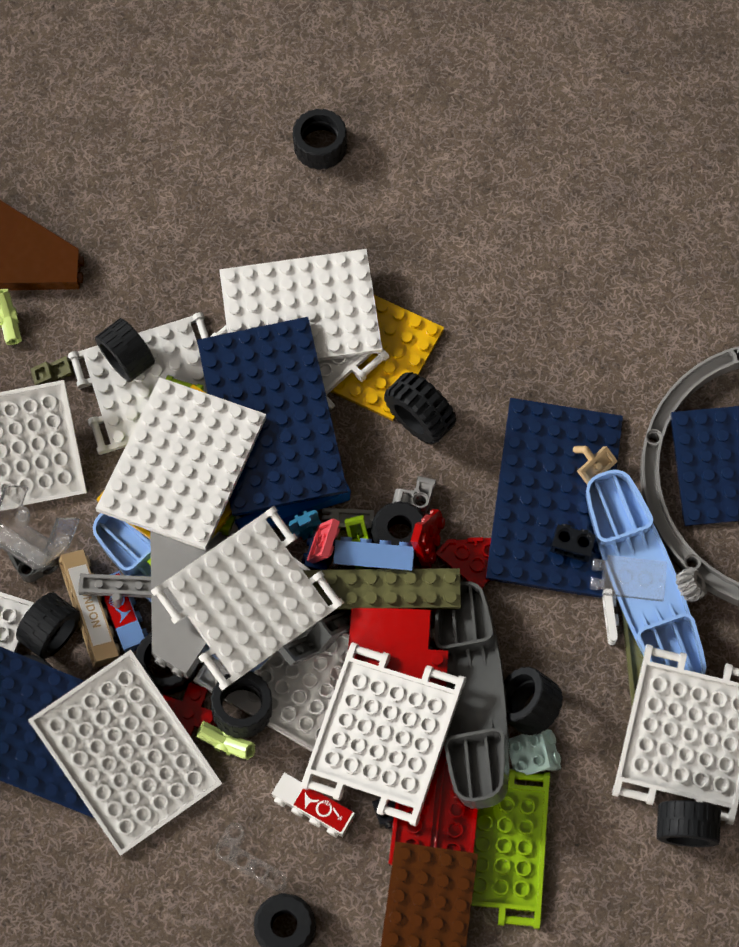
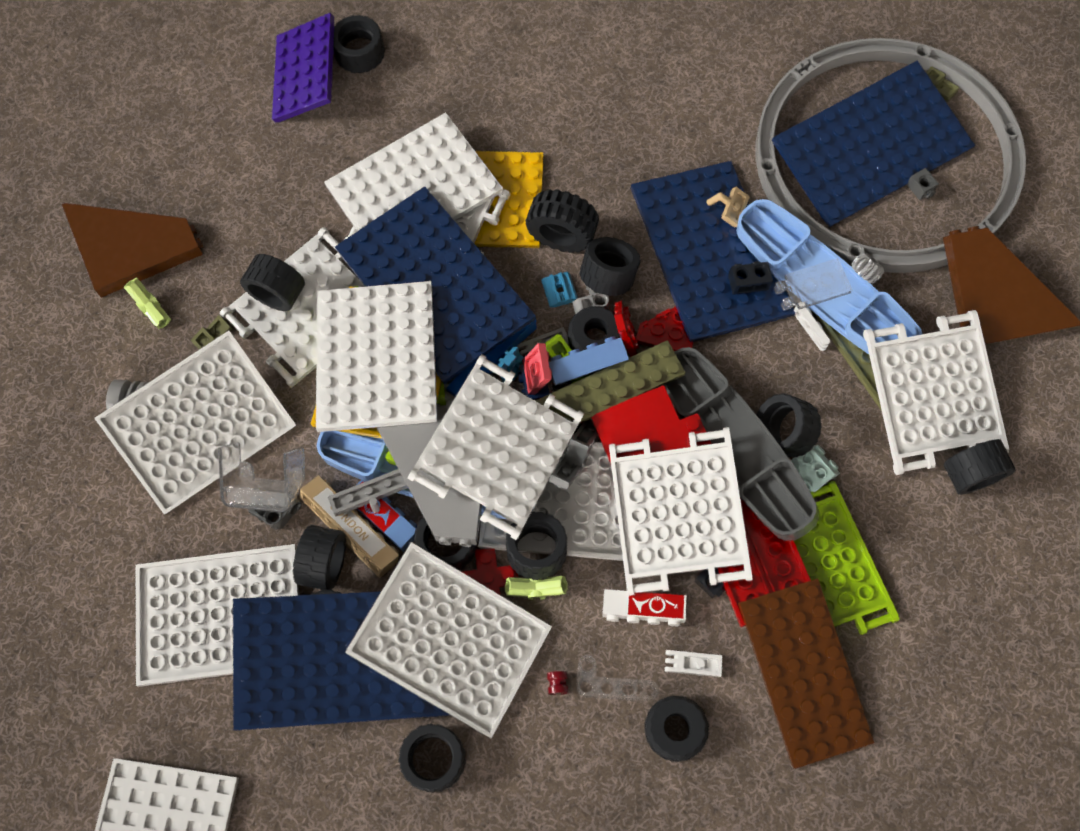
camera: 25 degrees left, 0 degrees up
(40, 835) = (406, 758): none -> black tyre
(202, 835) = (557, 682): none -> dark red wheel
(256, 143) = (303, 68): none -> dark purple plate
(332, 877) = (694, 663): none -> white hinge
(397, 479) = (562, 280): none -> dark azure piece
(455, 458) = (609, 266): none -> black tyre

